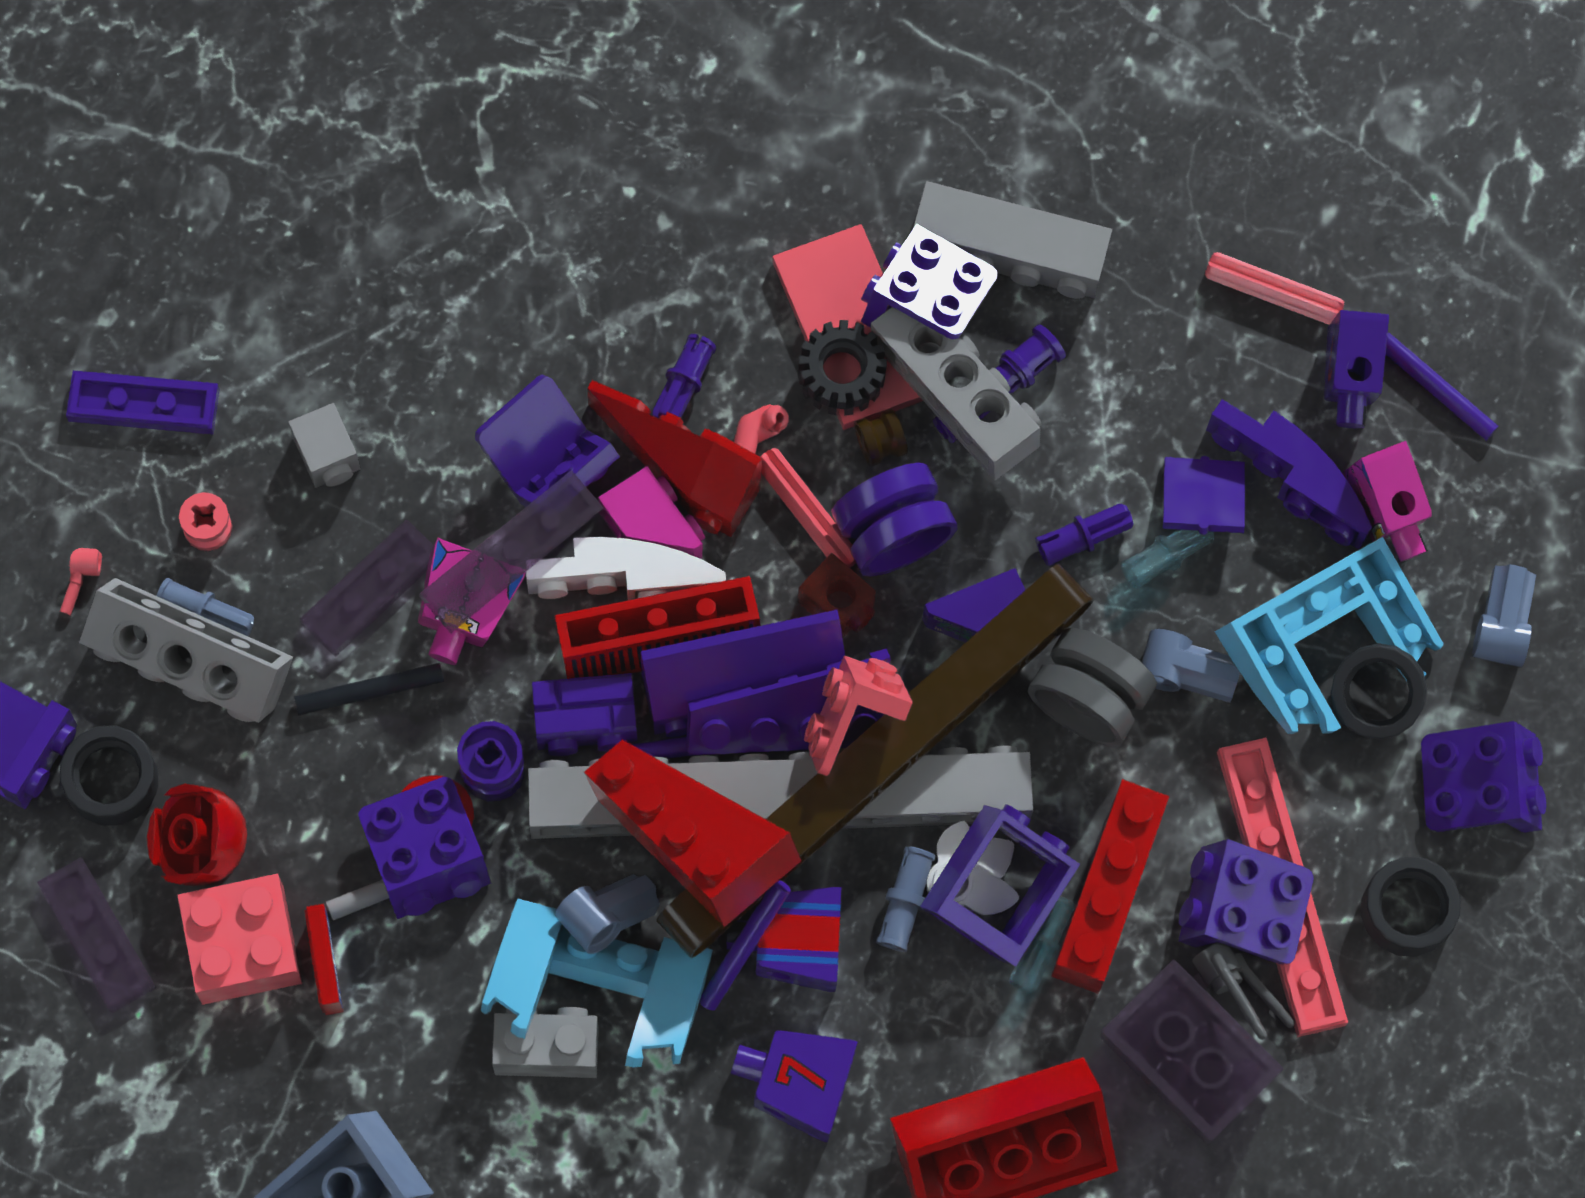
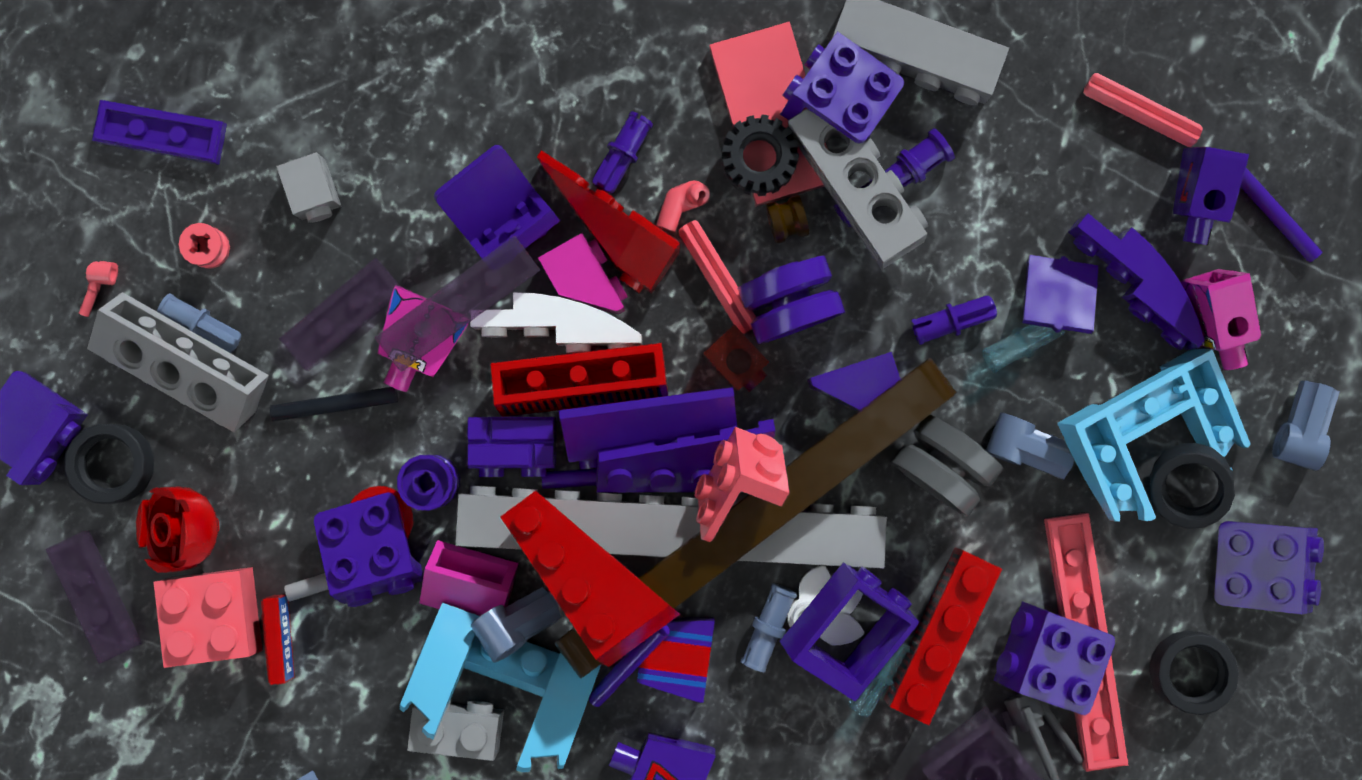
camera: 10 degrees right, 15 degrees up
(540, 871) = (466, 579): none -> dark pink brick

